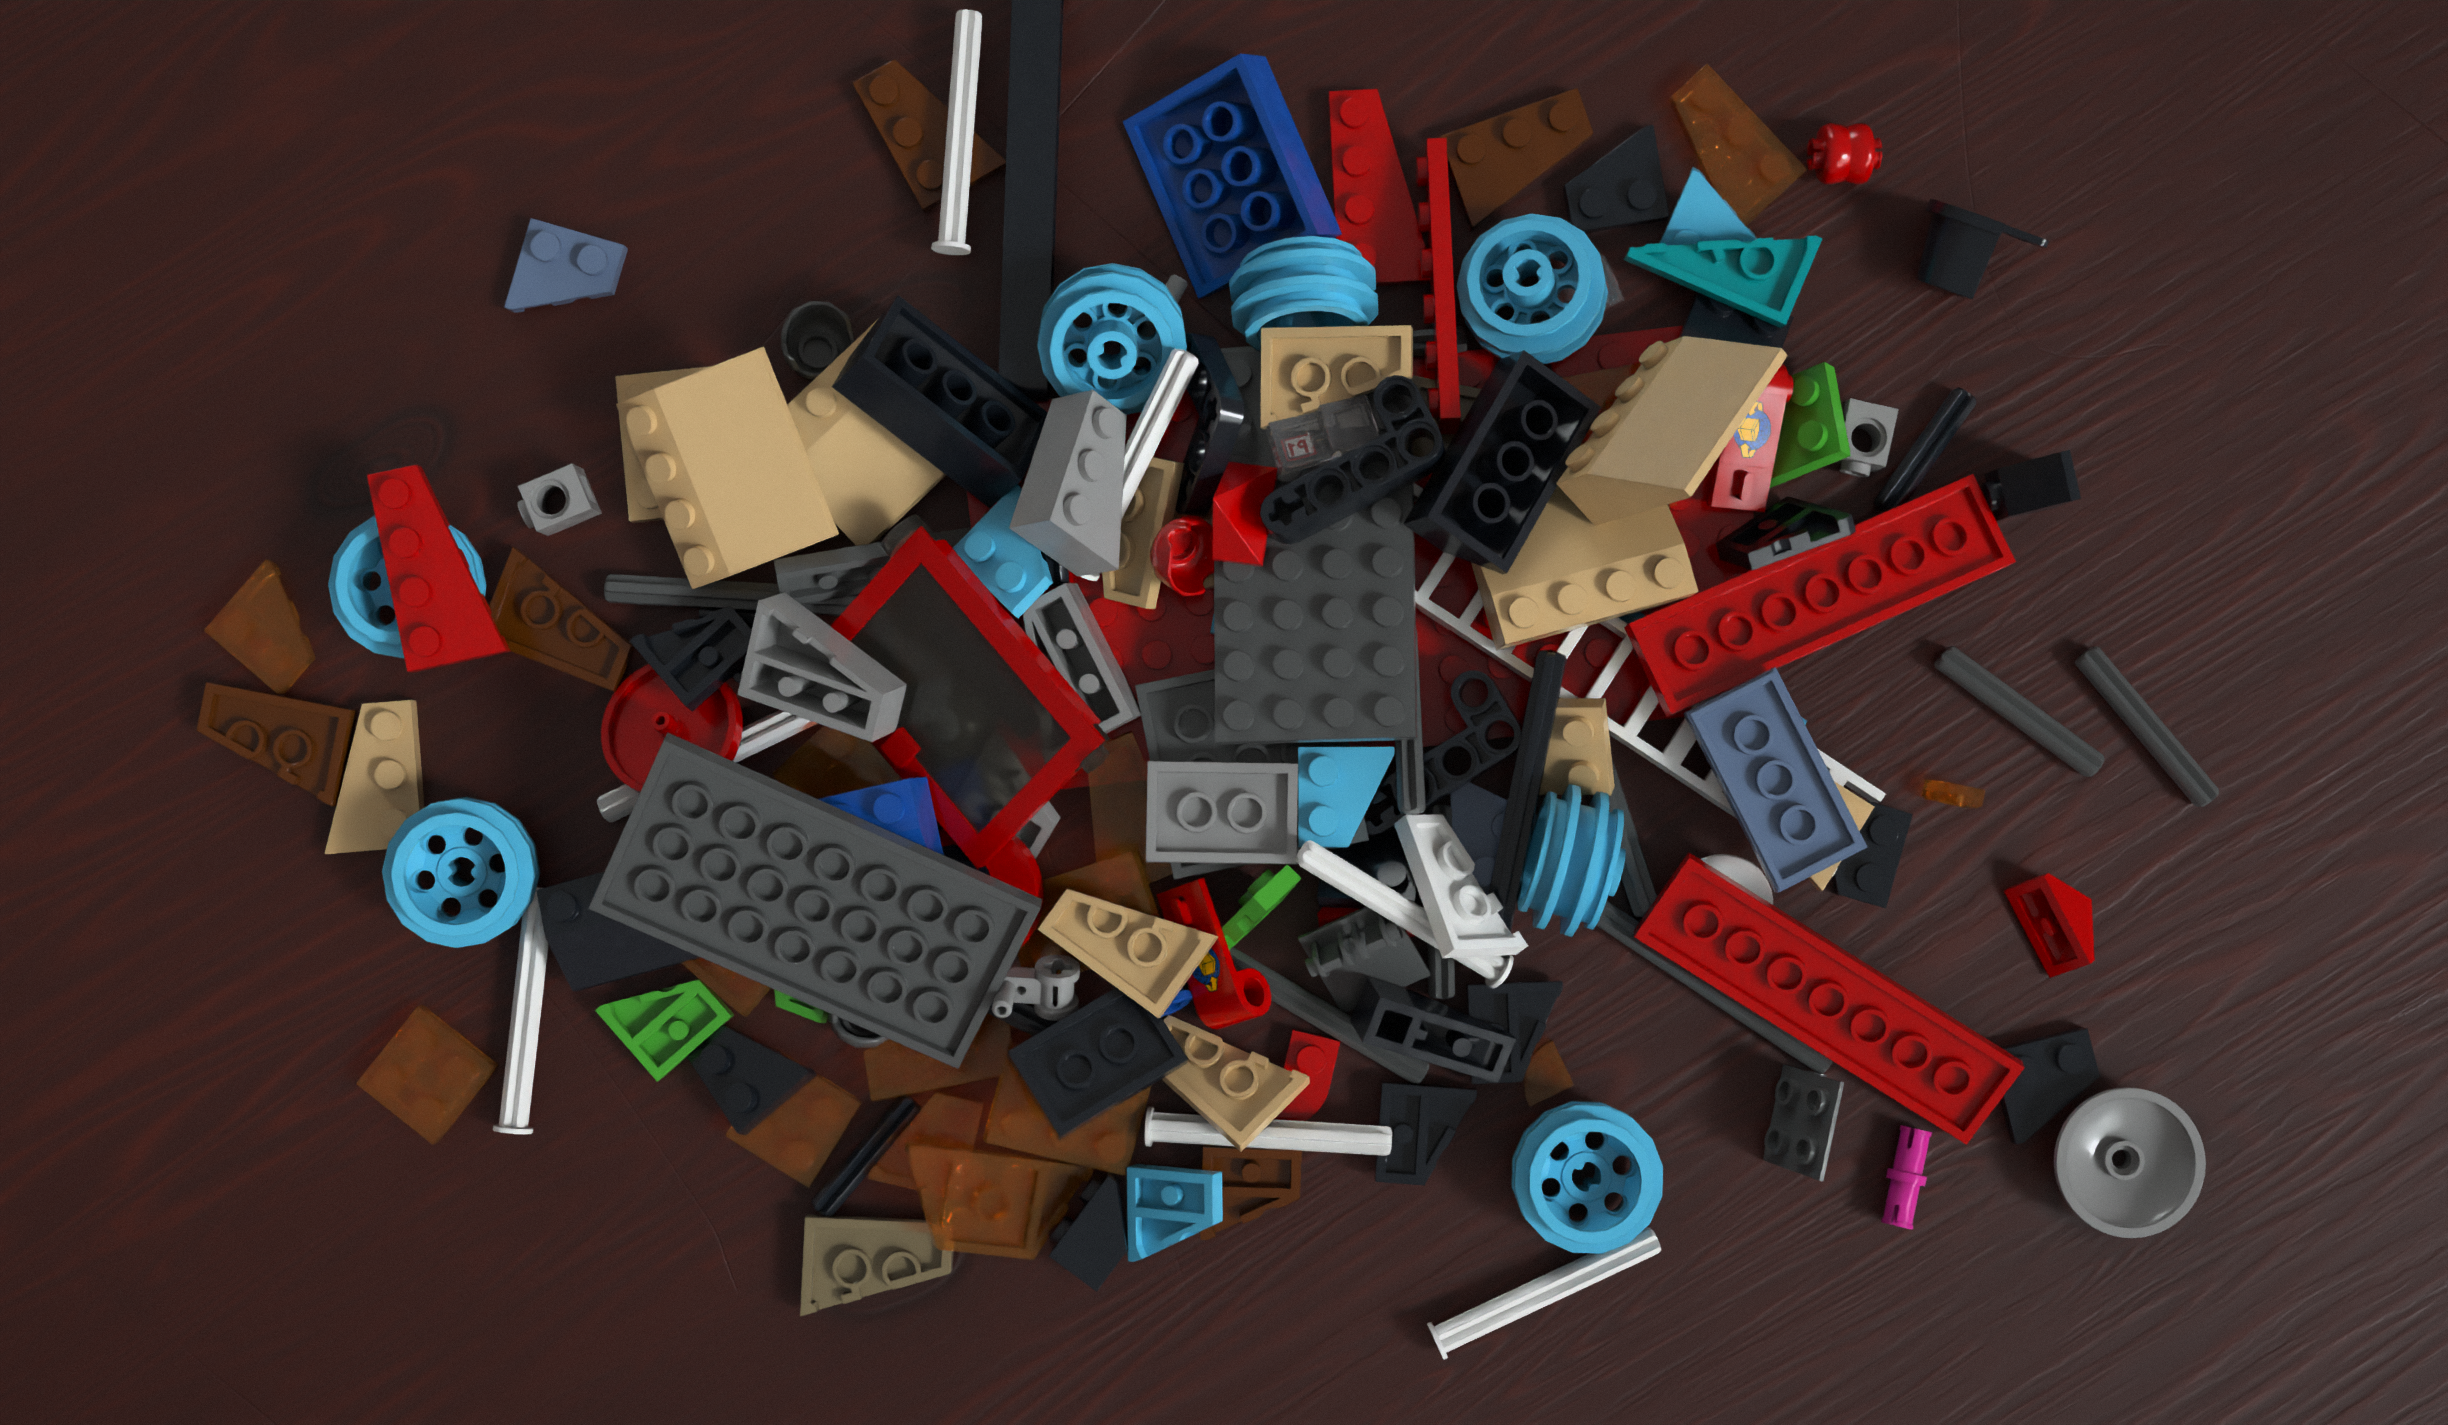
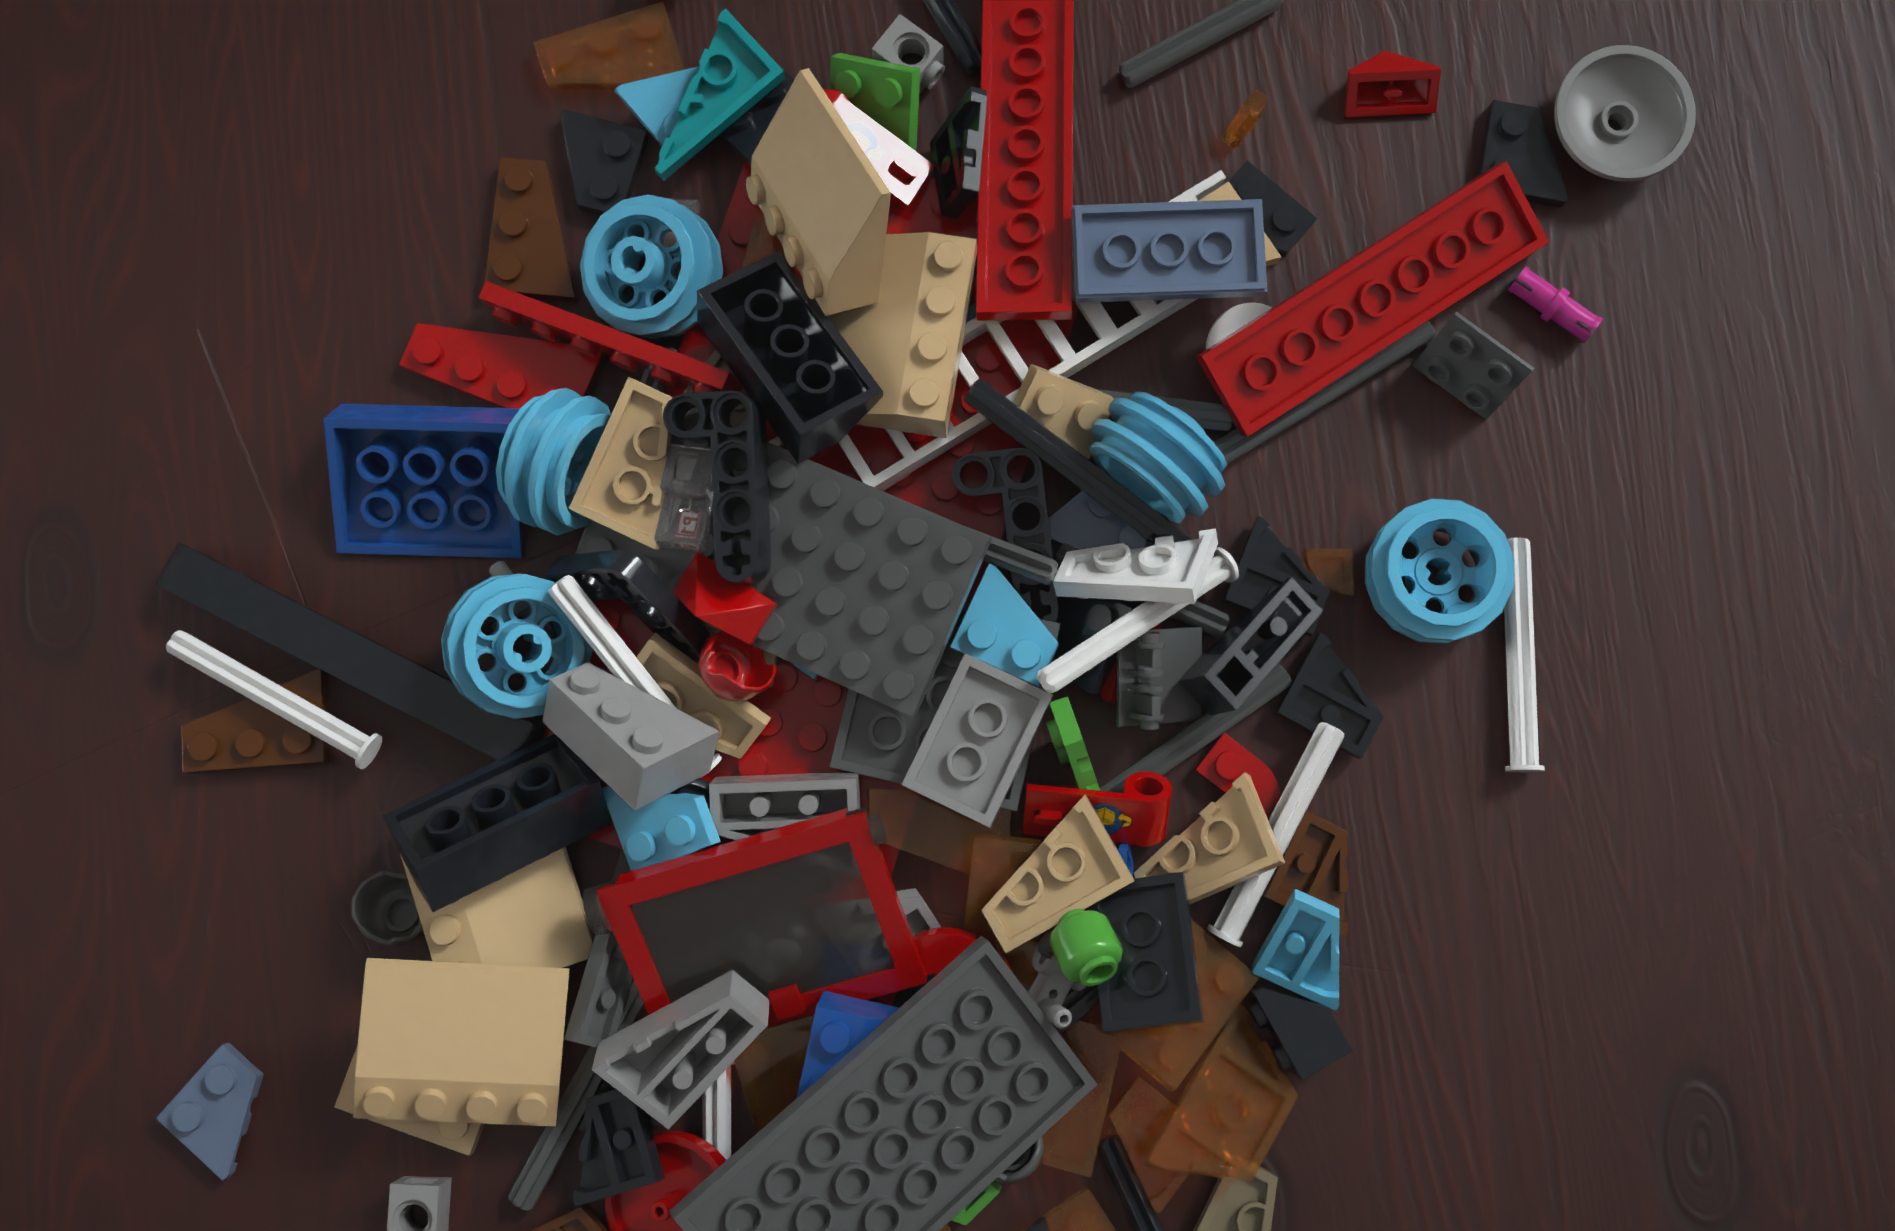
camera: 65 degrees left, 5 degrees down
(1076, 1000) = (1086, 947): none -> bright green head

